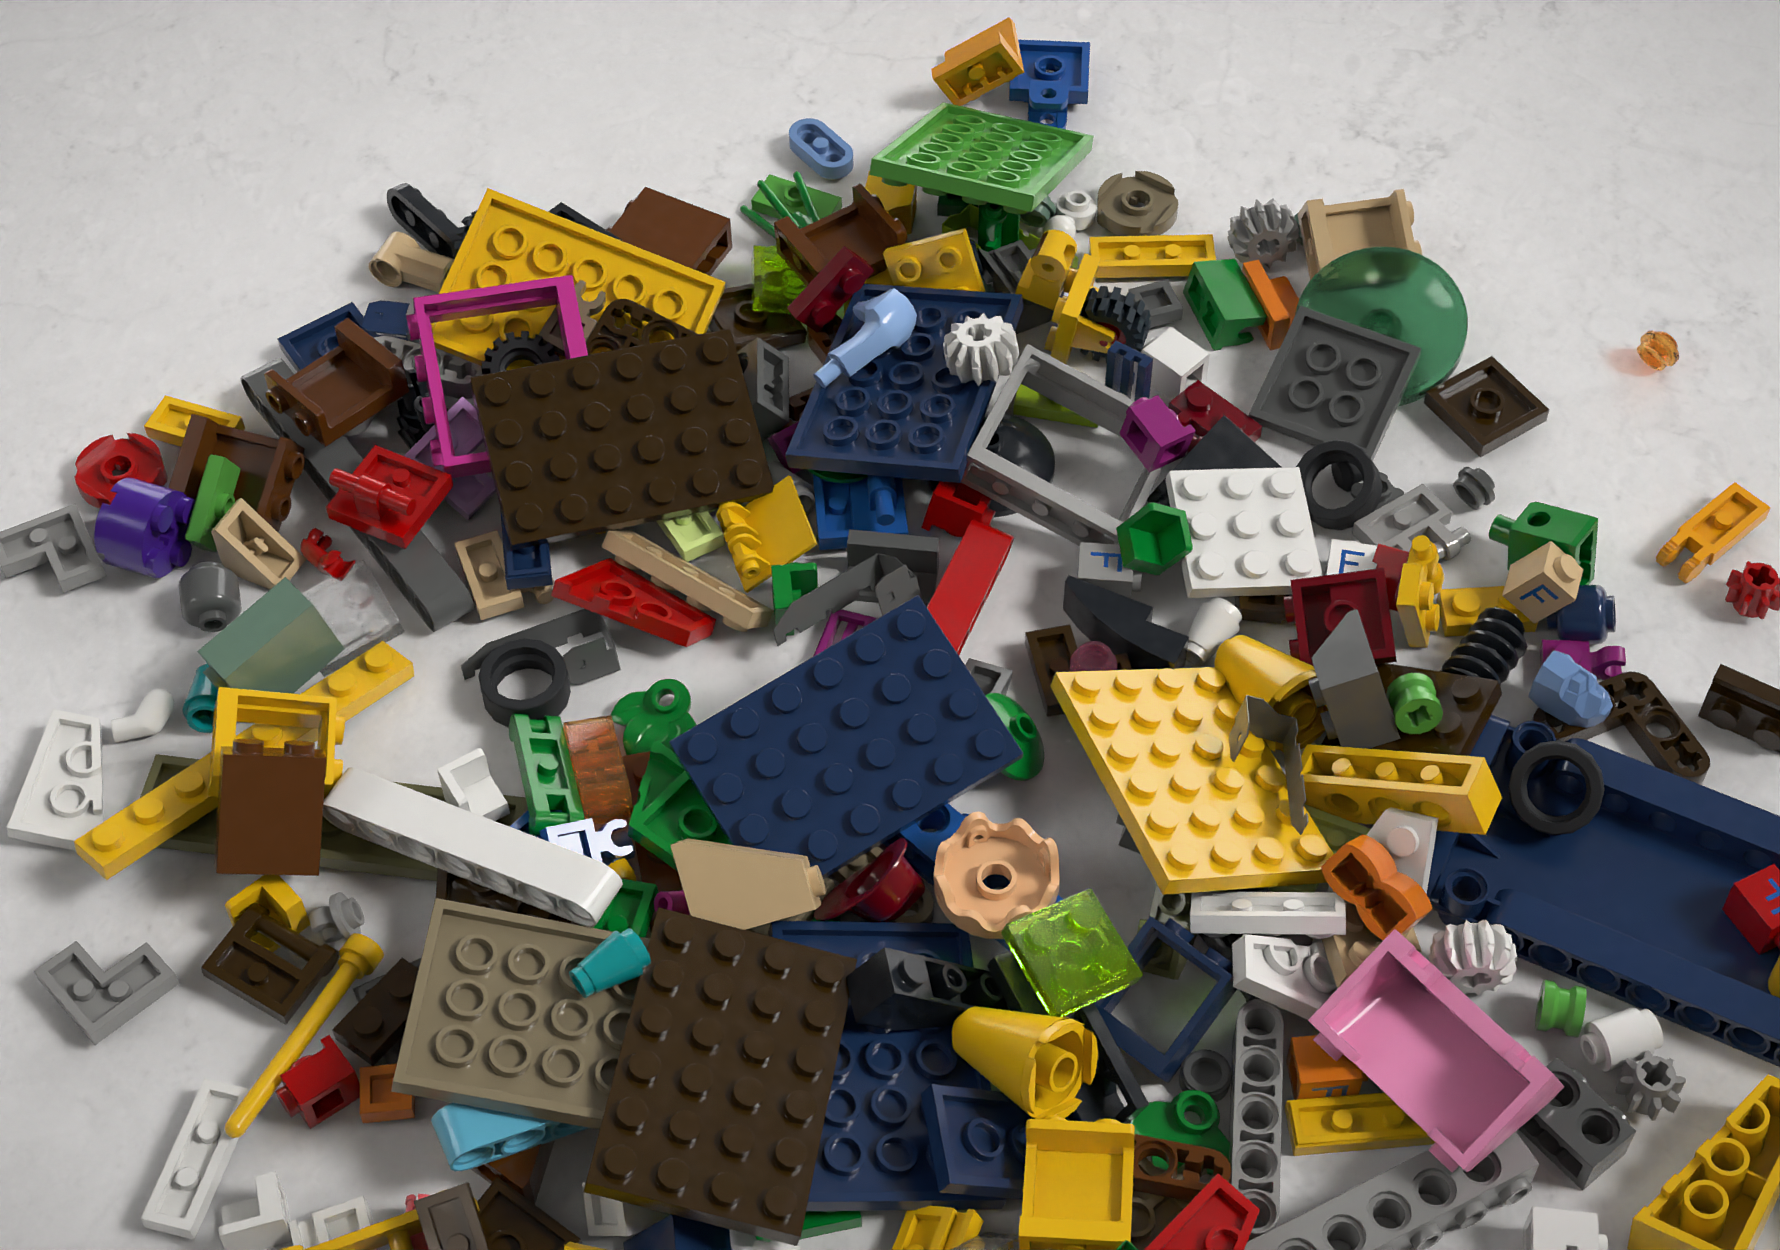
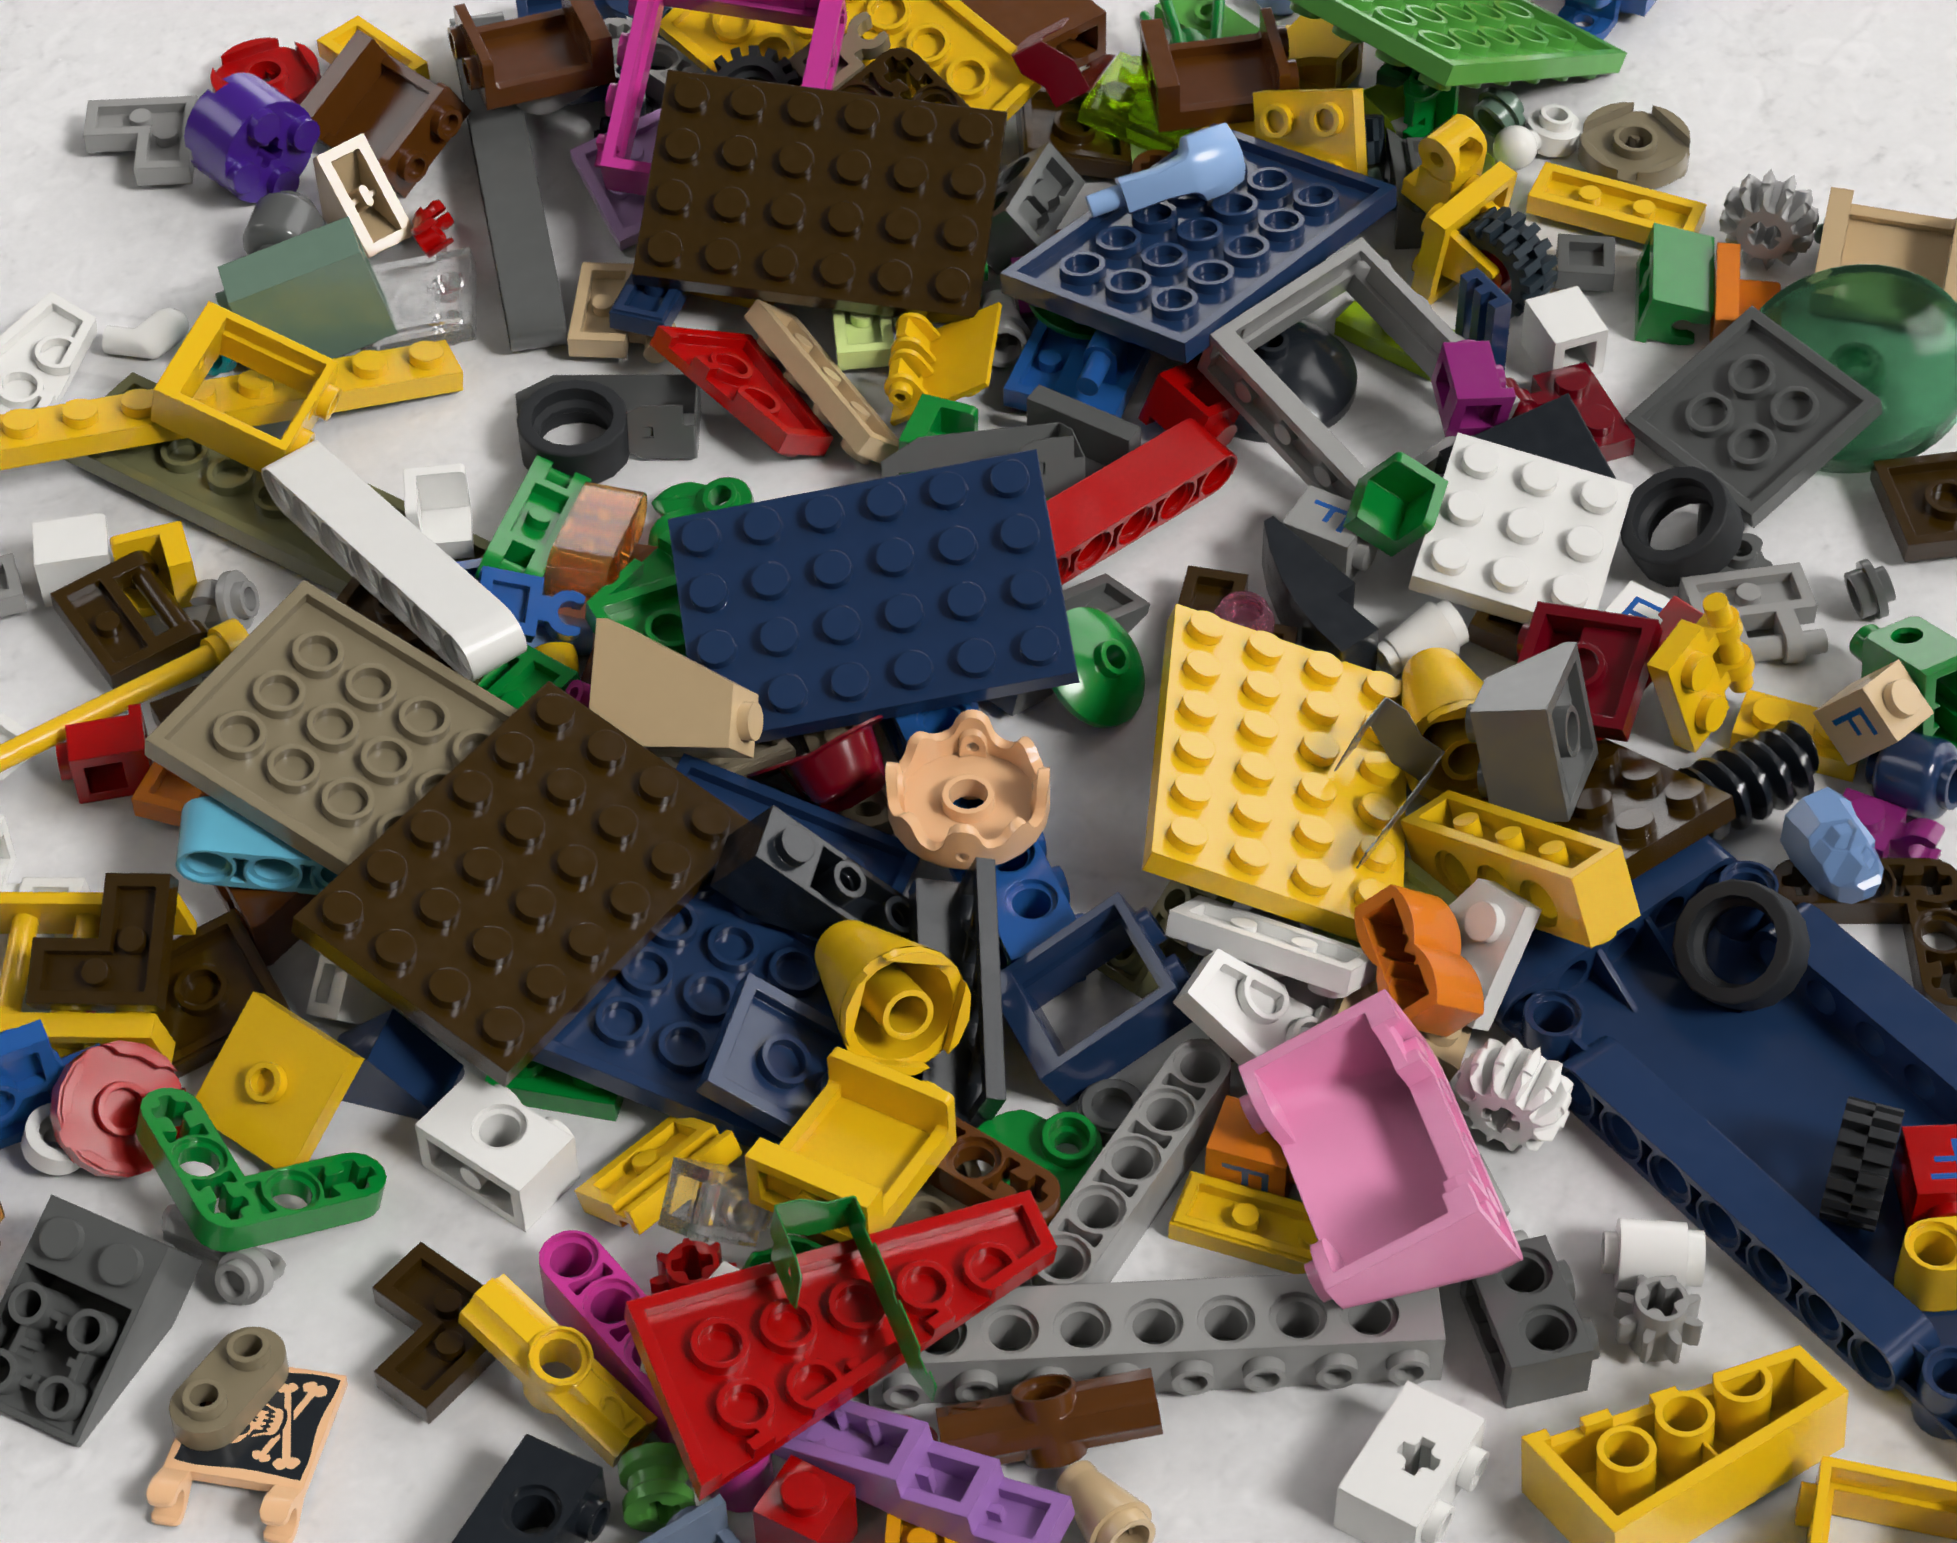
camera: 25 degrees right, 5 degrees down
(195, 926) = (68, 550): none -> white panel
(212, 501) = (351, 114): bright green plate -> none
(270, 808) = (198, 446): reddish brown brick -> none
(388, 496) = (526, 182): red plate -> none
(611, 963) = (456, 714): teal cone -> none
(738, 280) = (1056, 70): none -> dark red piece
(830, 289) = (1173, 111): dark red plate -> none
(981, 349) = (1293, 221): white gear -> none
(1071, 954) = (998, 897): clear neon green plate -> none
(1414, 703) = (1593, 766): bright green wheel -> none
(1560, 1008) = (1596, 1194): bright green wheel -> none
(1722, 920) = (1861, 1164): none -> black tyre

